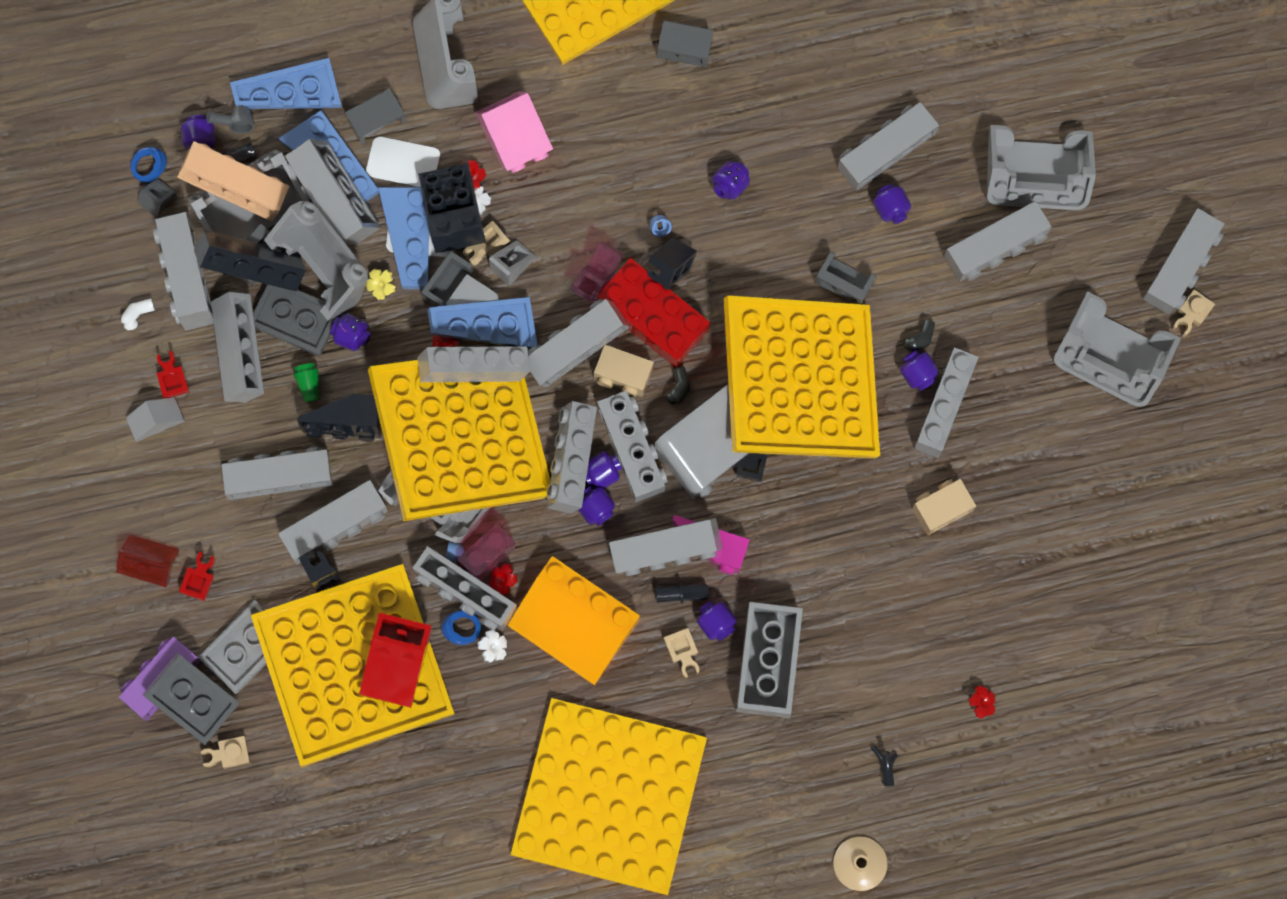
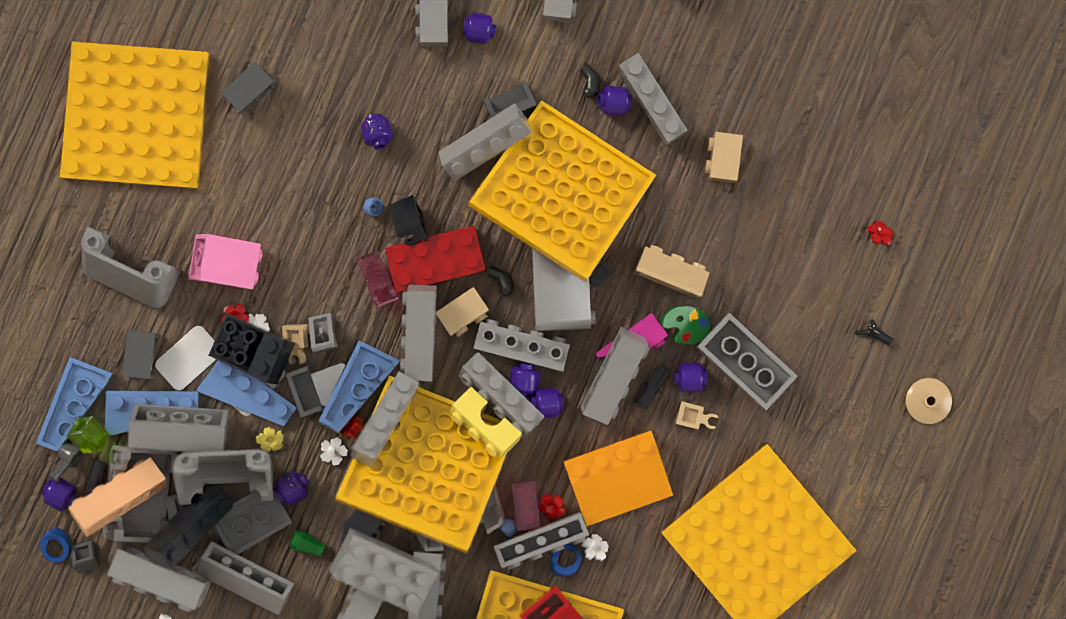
camera: 50 degrees left, 10 degrees up
(270, 121) = (88, 435): none -> clear neon green brick
(333, 459) = (383, 571): none -> light grey brick
(410, 347) = (333, 451): none -> white plant
(530, 480) = (496, 438): none -> light yellow arch
(763, 587) = (691, 328): none -> green piece
(792, 278) = (484, 142): none -> light grey brick
(801, 532) = (672, 272): none -> tan slope

